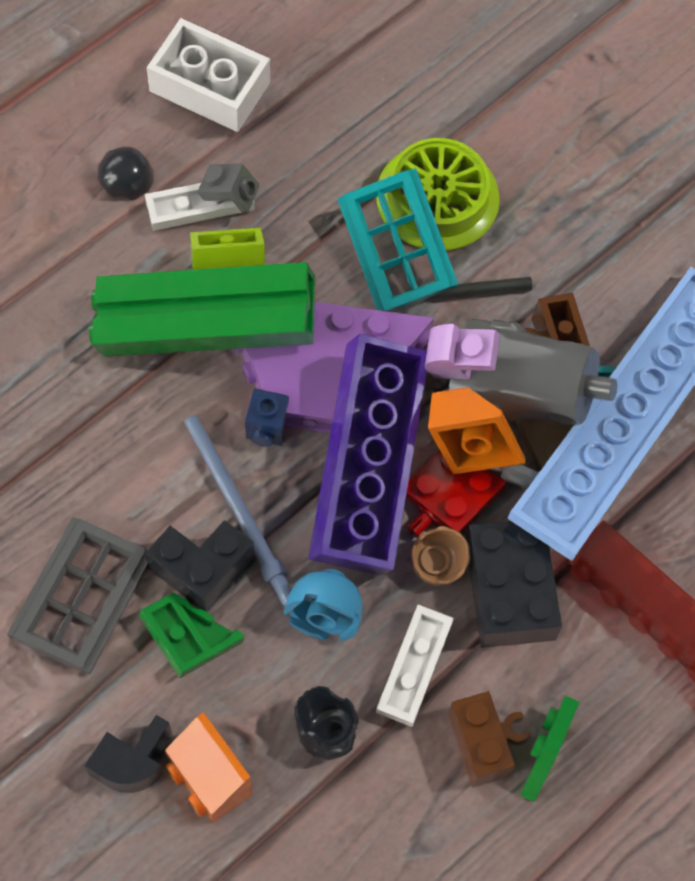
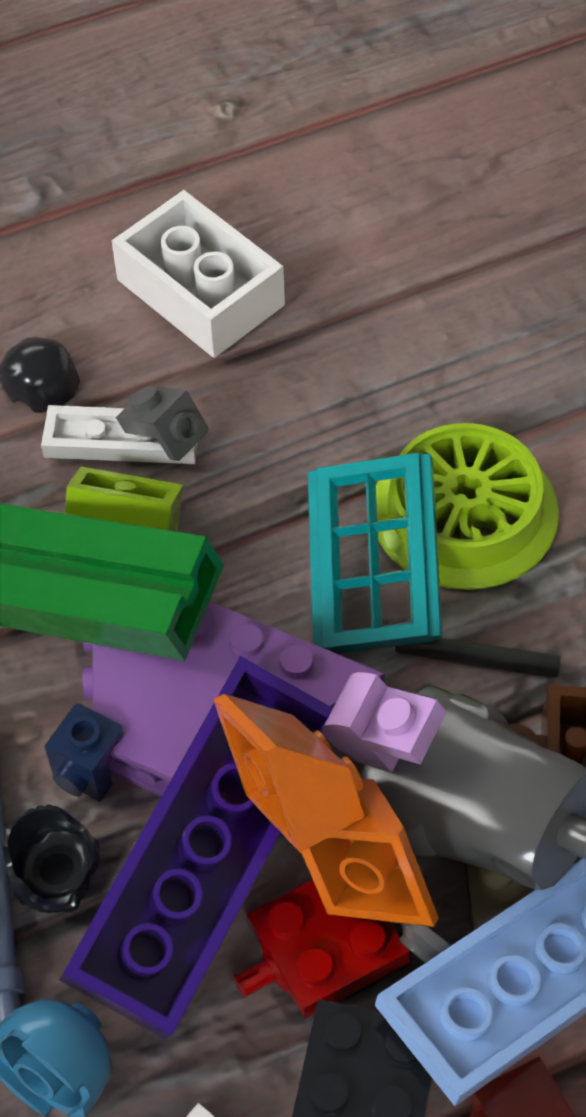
camera: 25 degrees right, 10 degrees down
(273, 490) = (50, 859): none -> black hair
(421, 397) = (290, 772): none -> orange slope
(440, 556) = (260, 1037): medium nougat hair -> none

